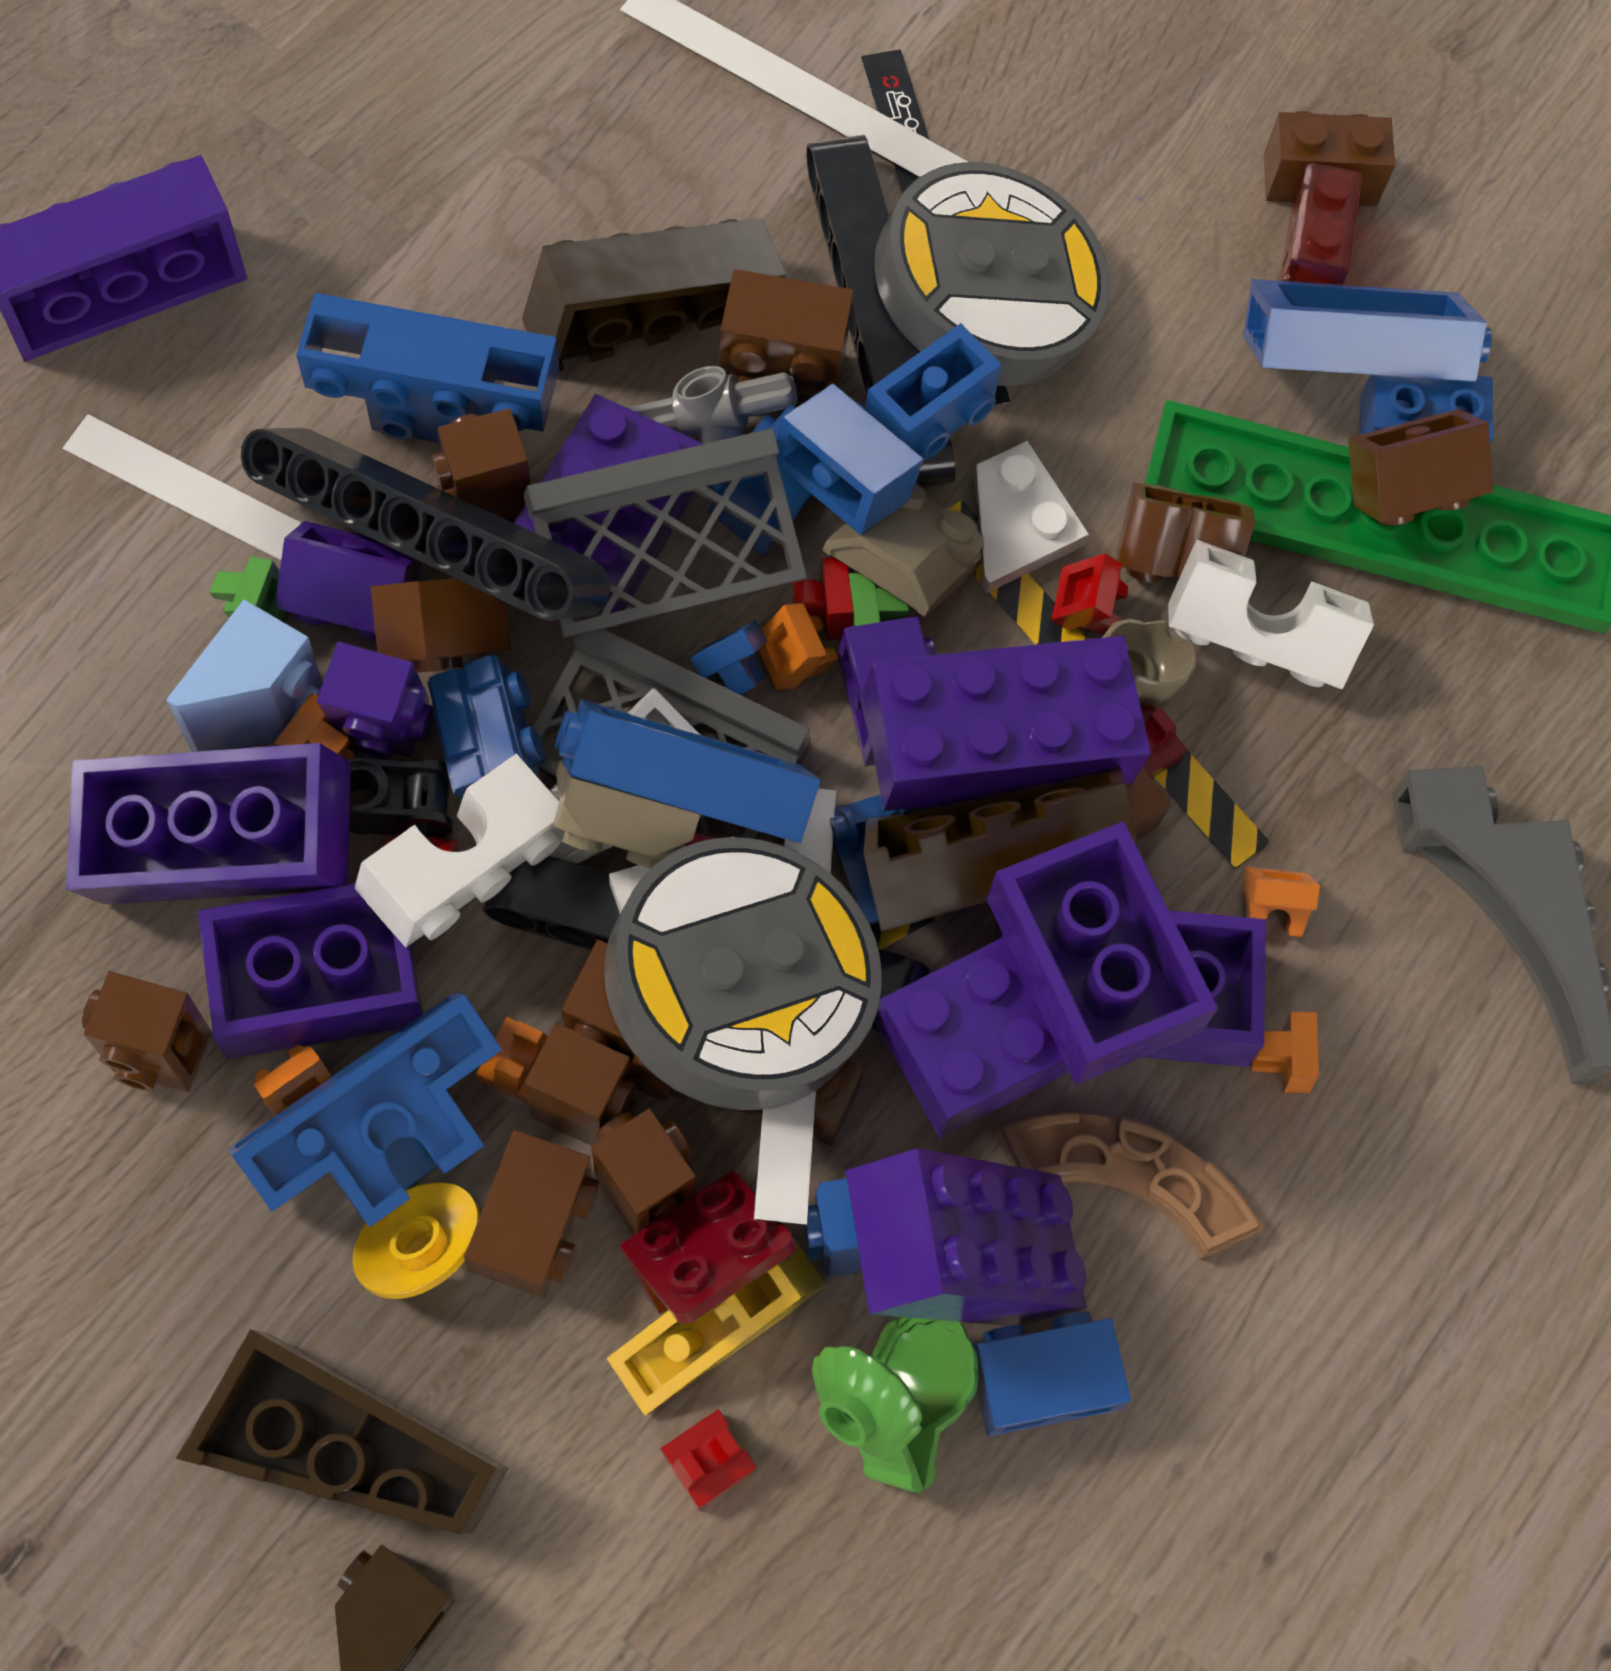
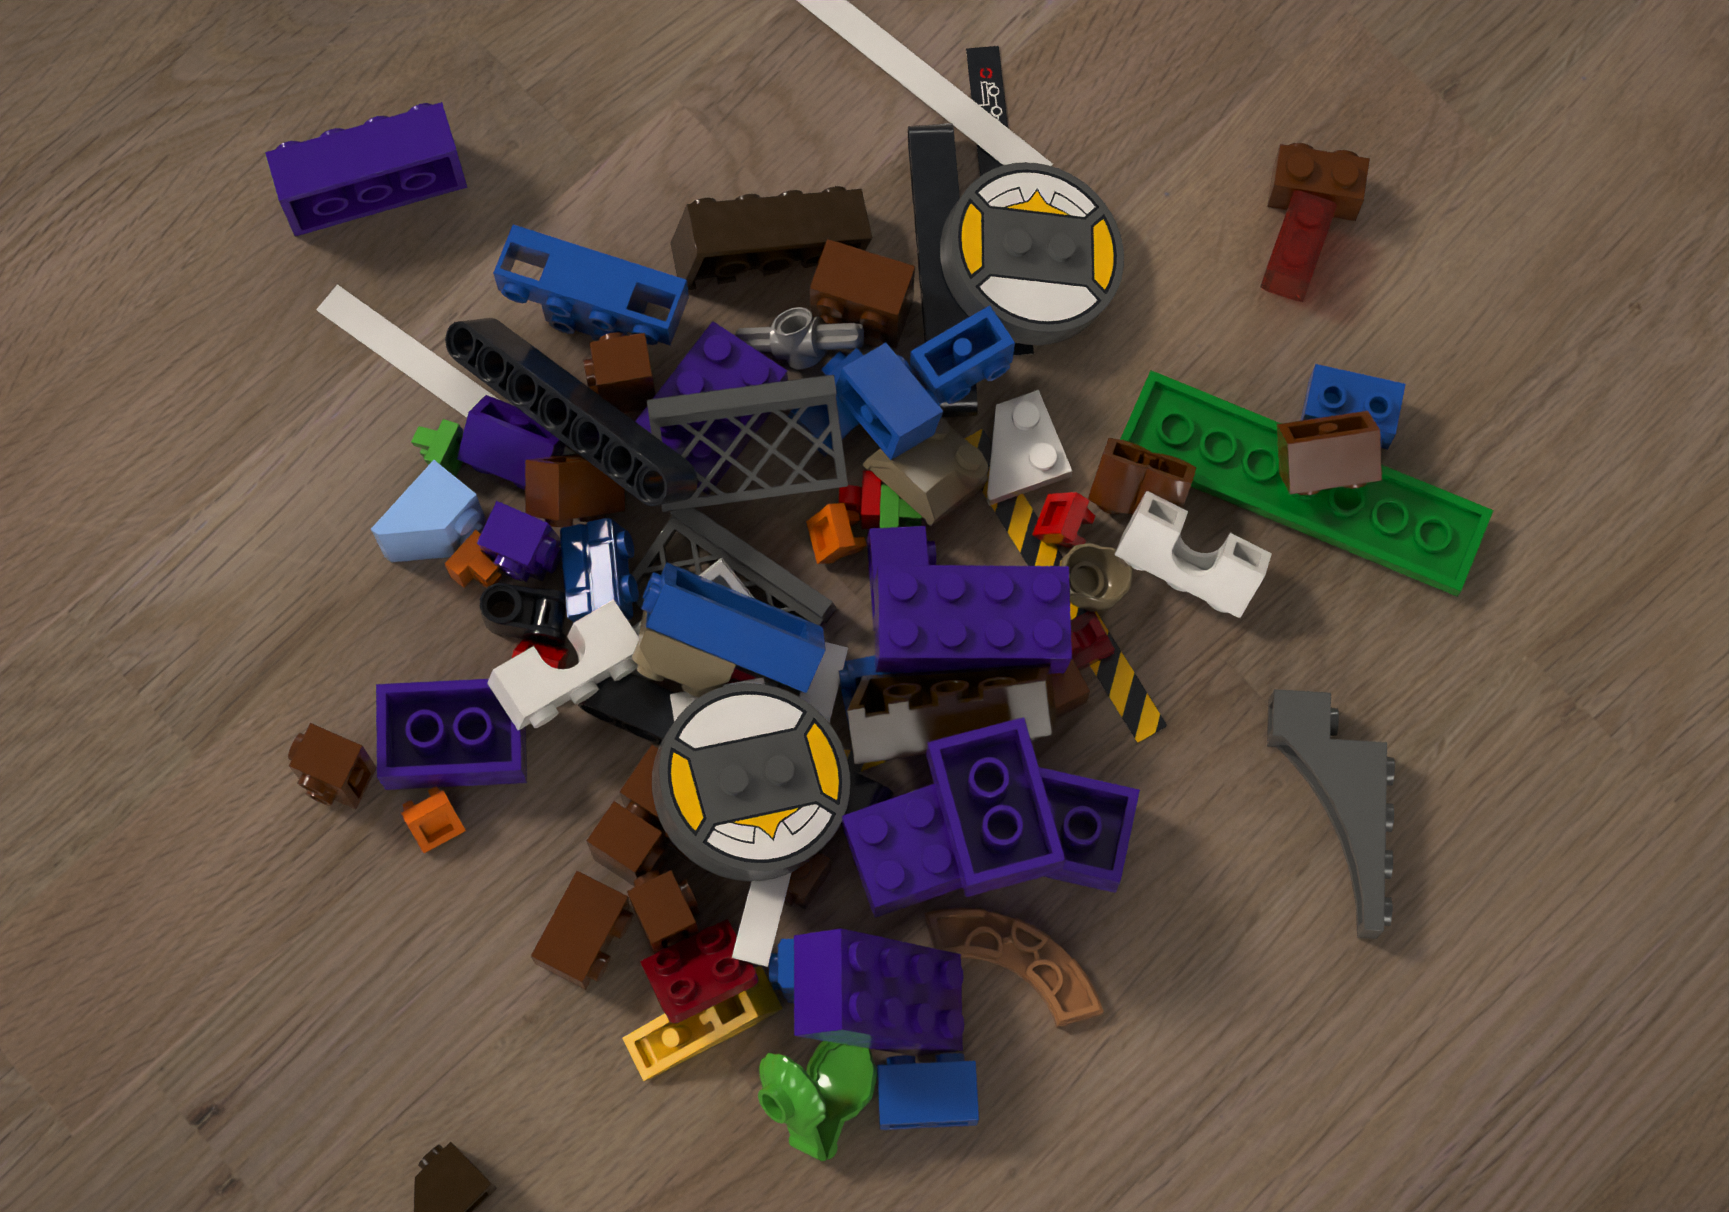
camera: 15 degrees right, 5 degrees up
(209, 824) = (391, 621): dark purple brick -> none
(323, 1434) = (425, 1064): dark brown wedge -> none
(378, 1118) = (483, 848): blue piece -> none
(416, 1242) = (500, 937): yellow dish -> none
(512, 1065) = (584, 814): orange tile -> none
(708, 1459) = (683, 1117): red tile -> none
(733, 658) = (786, 538): blue tile -> none
(1283, 890) = (1162, 765): orange tile -> none
(1292, 1053) = (1146, 887): orange tile -> none
(1365, 330) = (1313, 334): window -> none

